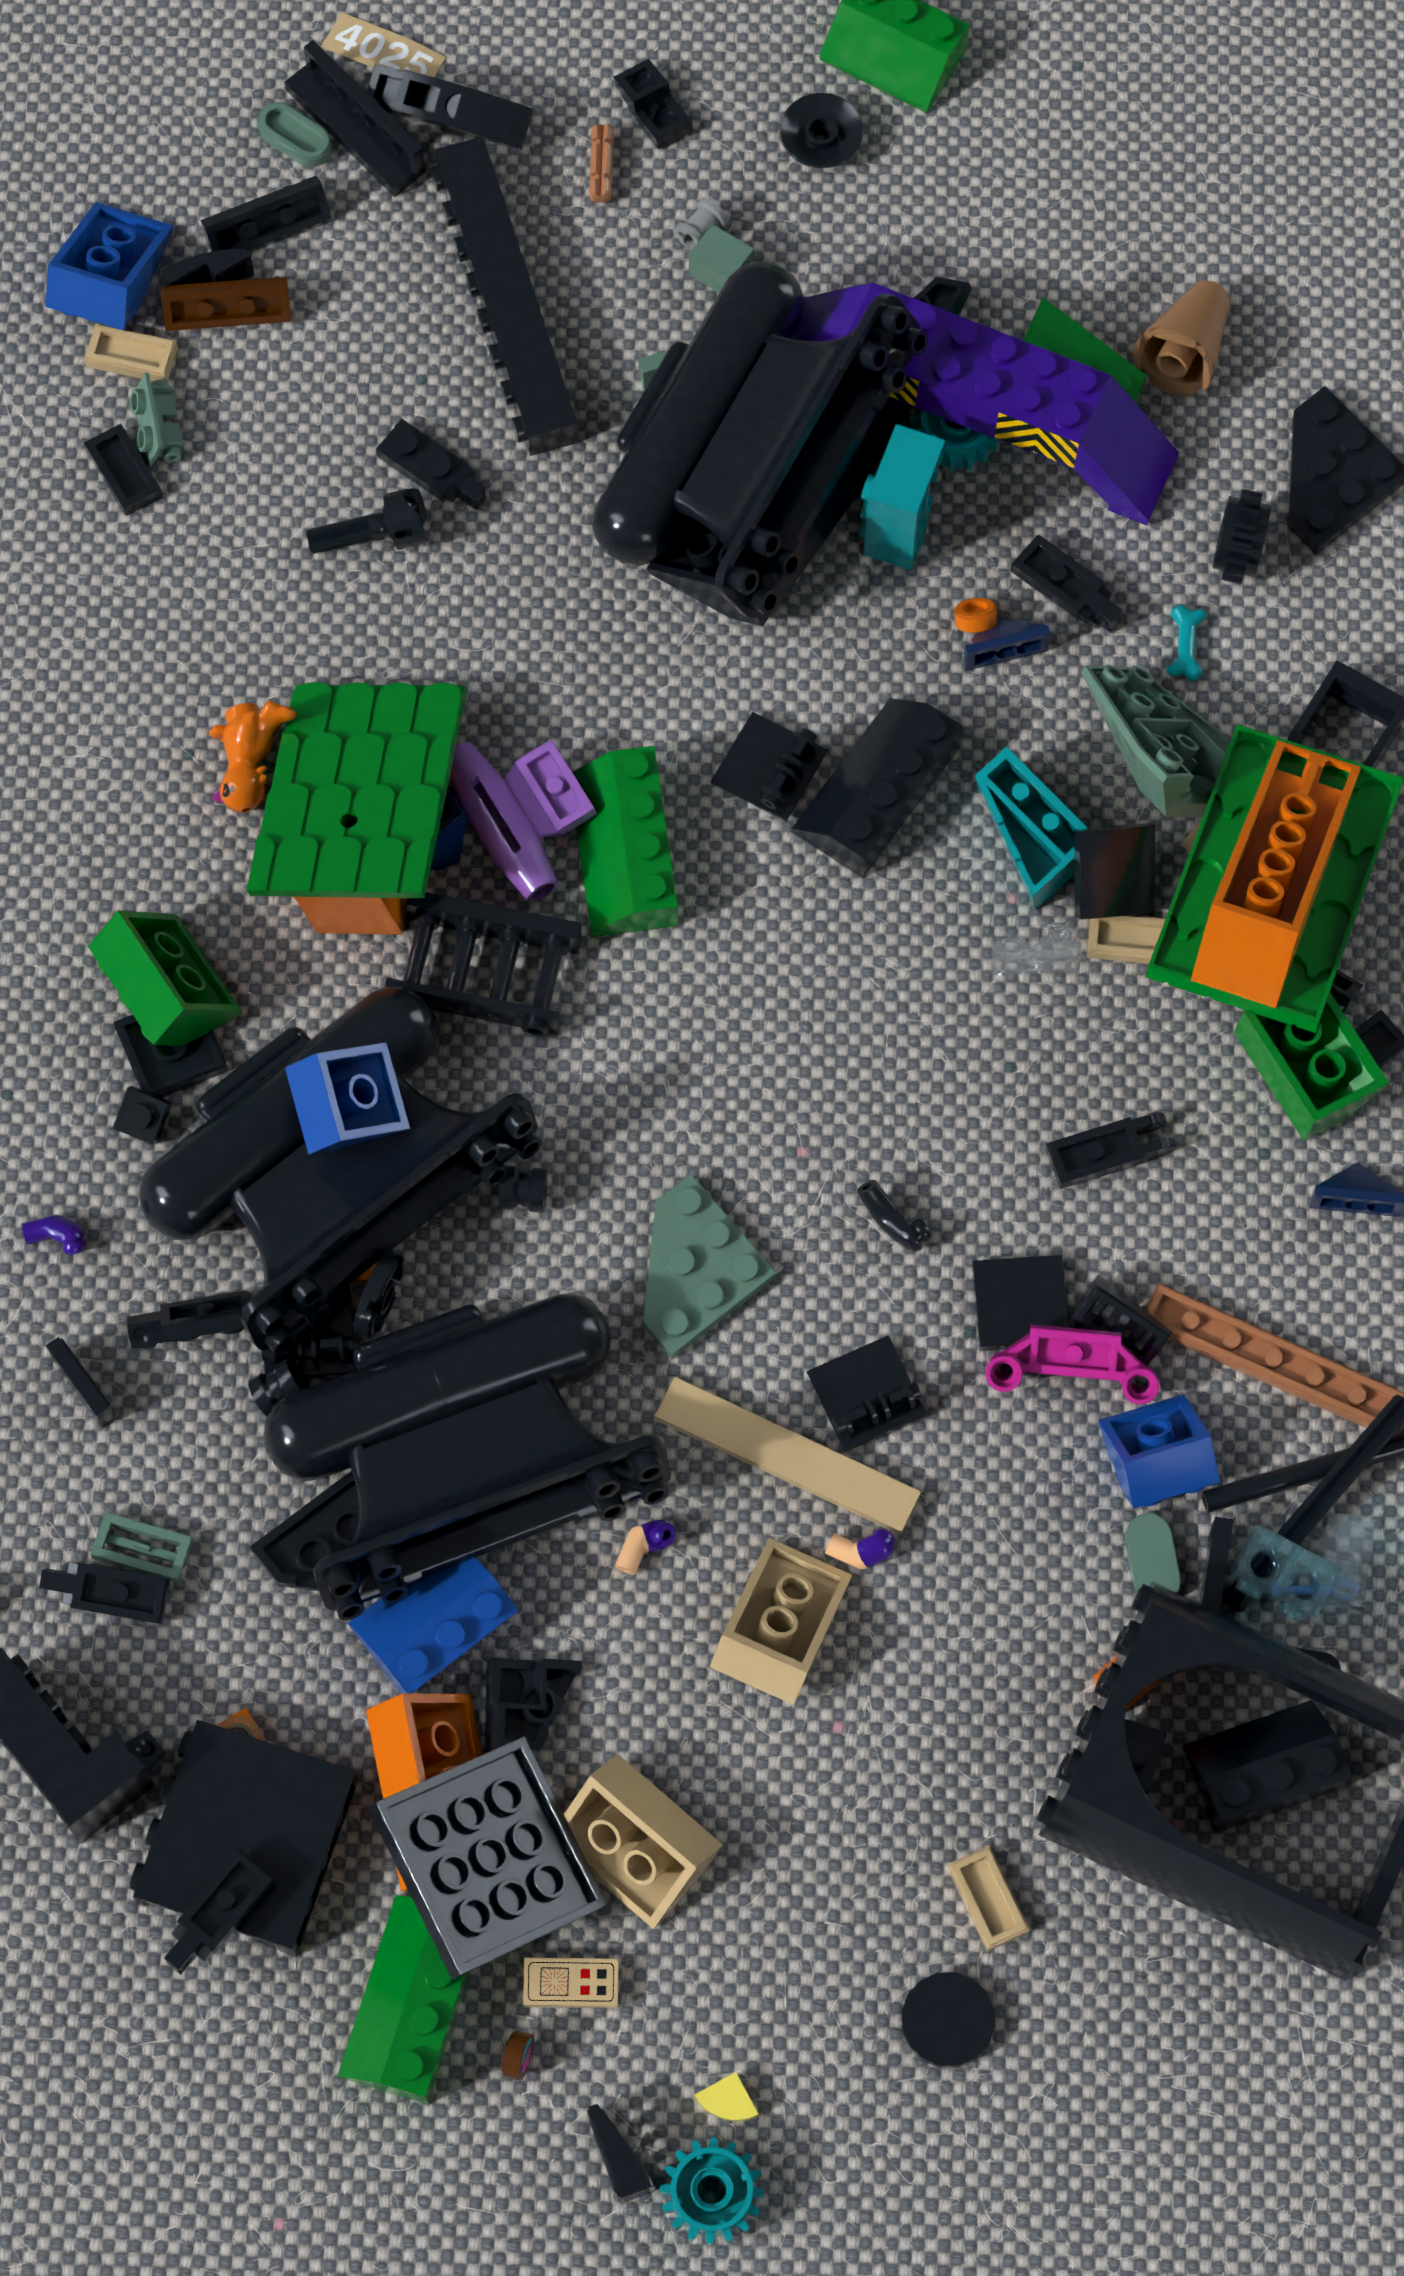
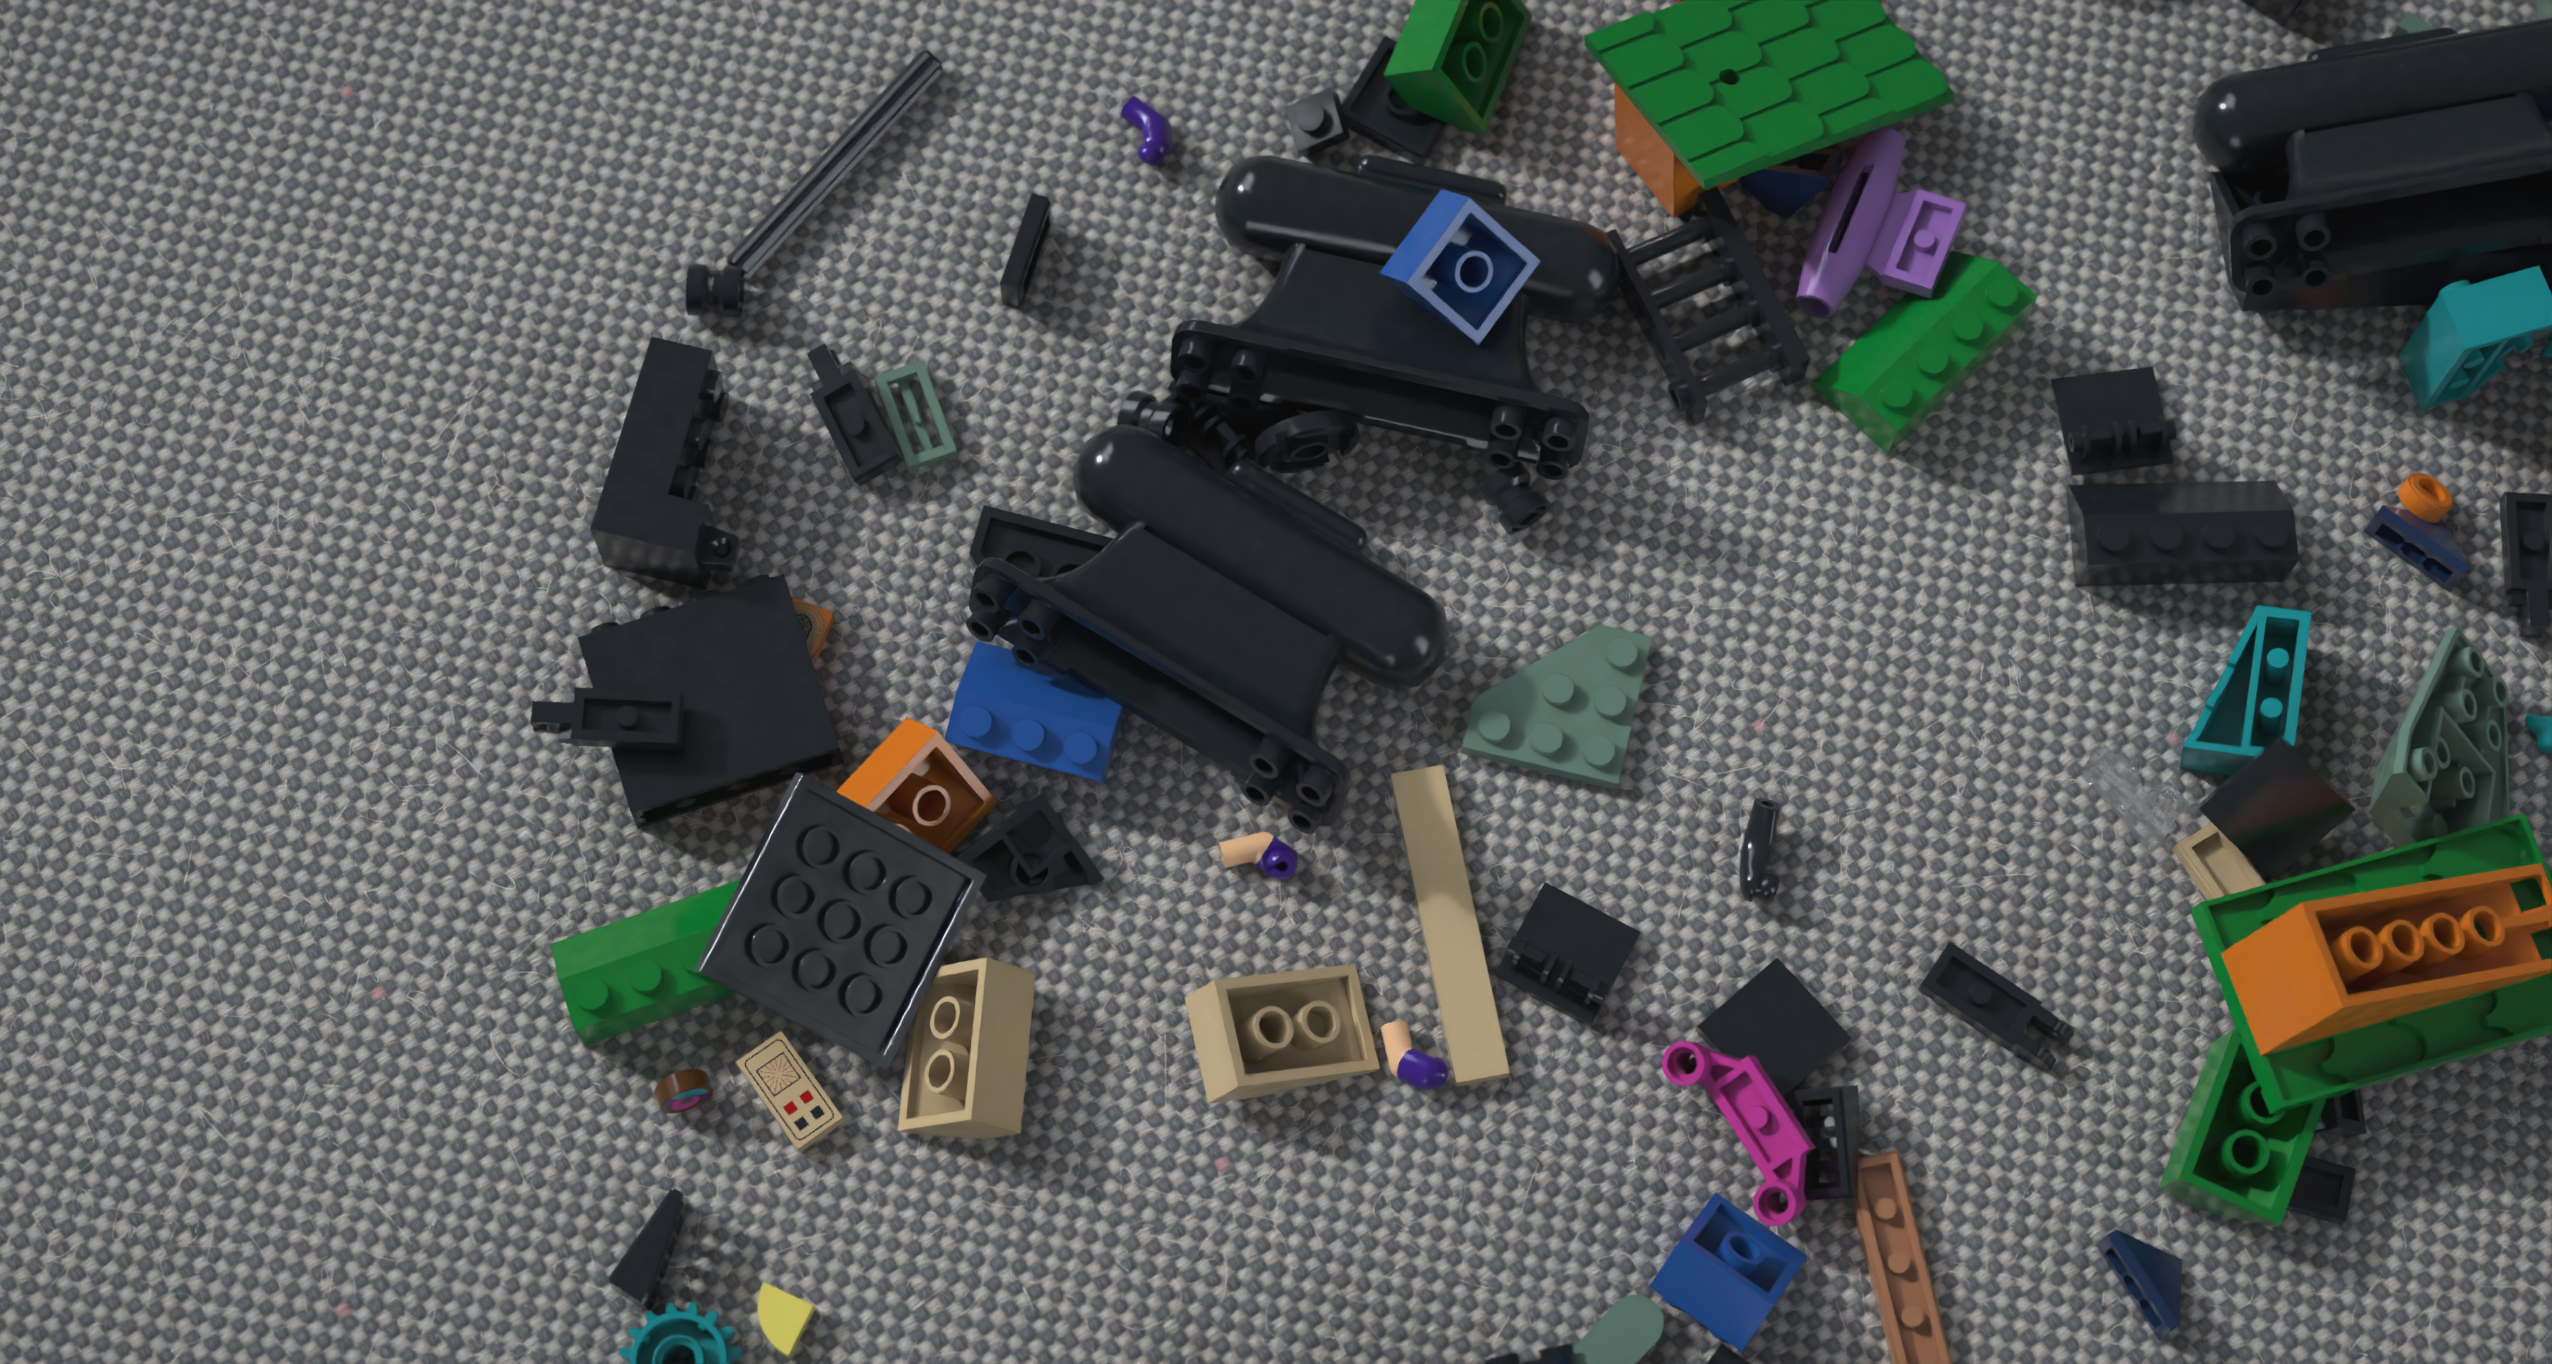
camera: 50 degrees right, 0 degrees up
(188, 1319) = (1148, 291): black hinge -> none

